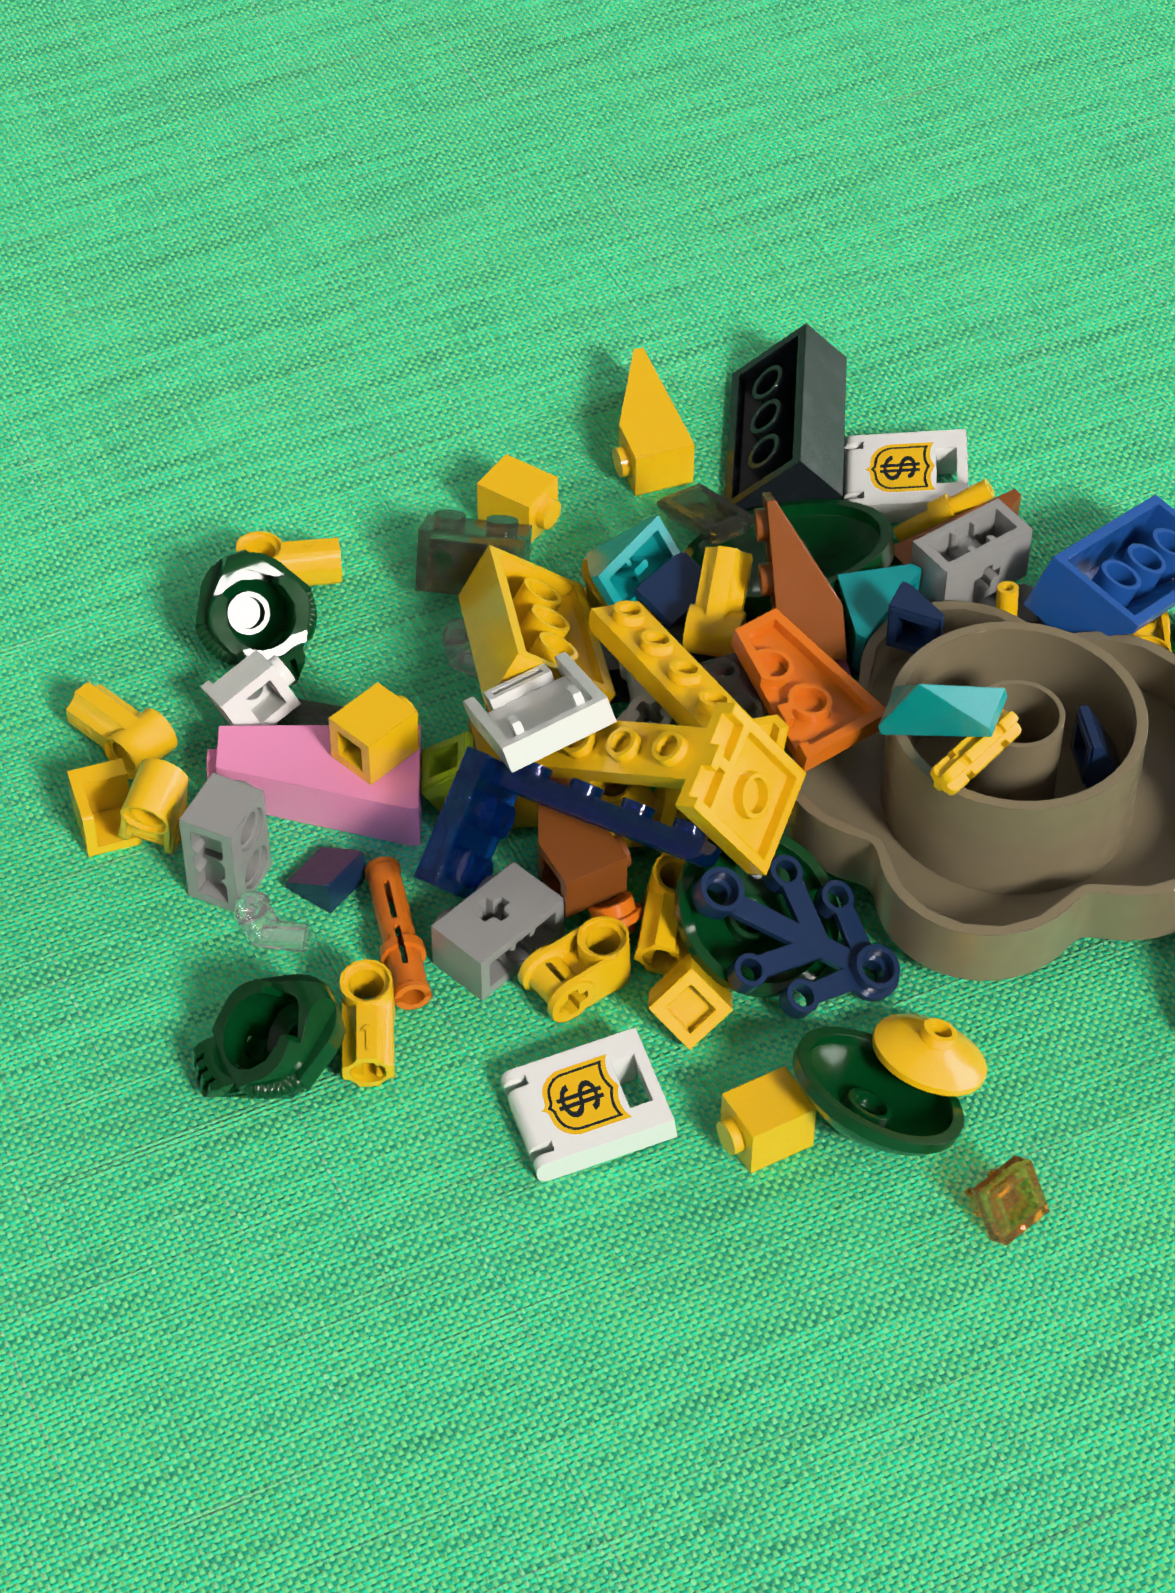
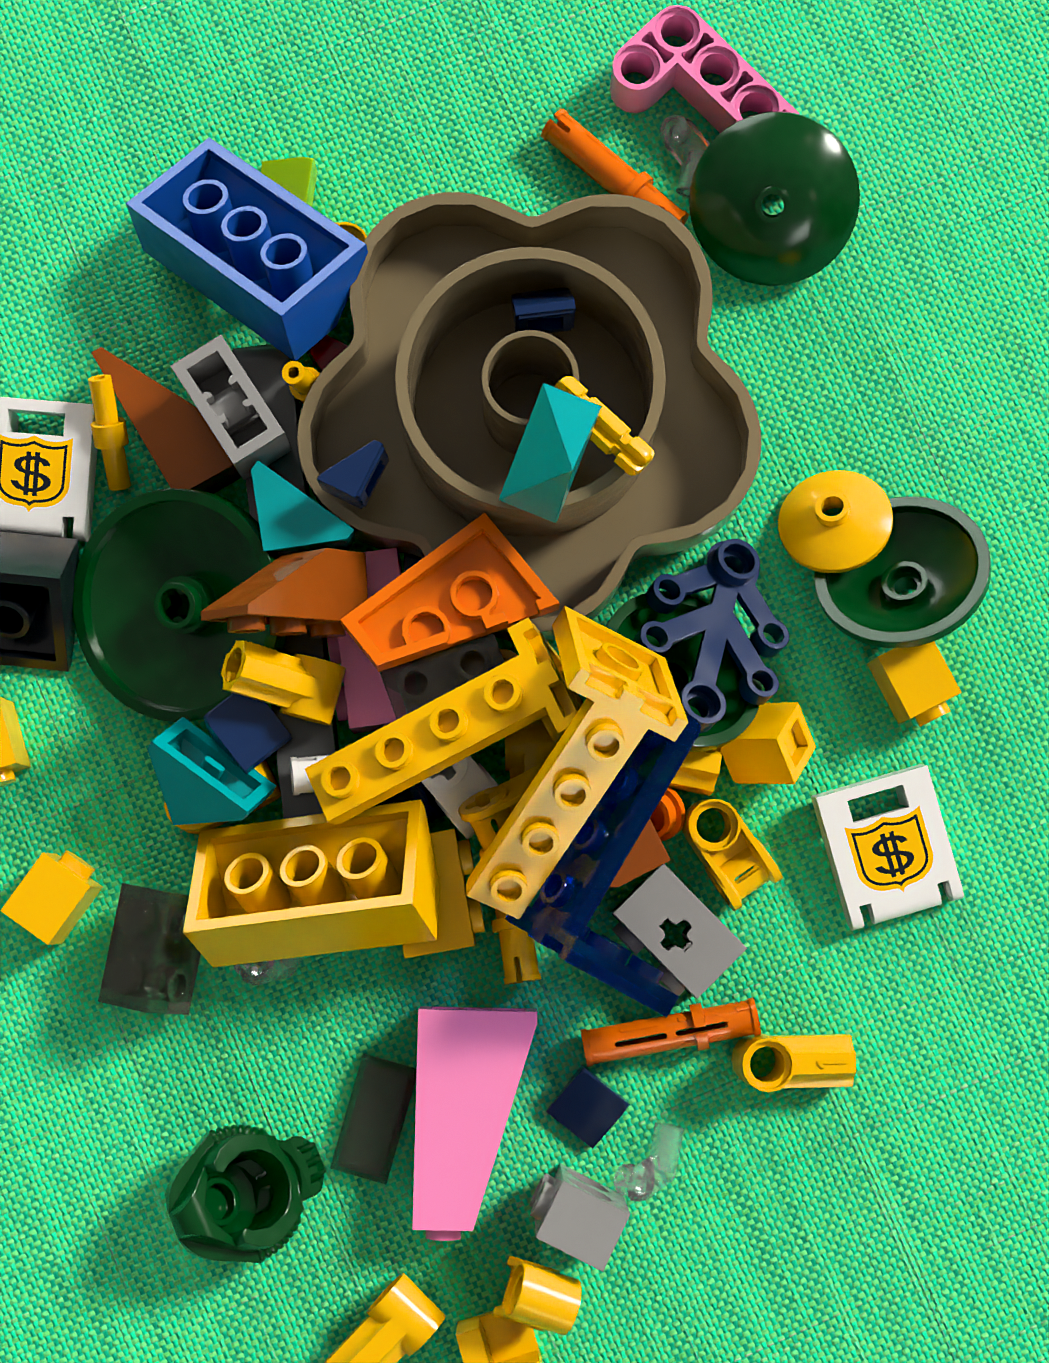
camera: 90 degrees left, 35 degrees up
(253, 692) = (360, 1194): white brick -> none
(292, 1041) = (830, 1158): dark green helmet -> none
(311, 560) = (139, 1150): yellow piece -> none
(374, 733) = (454, 1058): yellow brick -> none
(440, 767) = (466, 980): lime slope -> none
(540, 714) = (491, 886): white container -> none
(706, 514) = (87, 690): clear smoke tile -> none
(1008, 1200) = (1005, 466): clear orange tile -> none

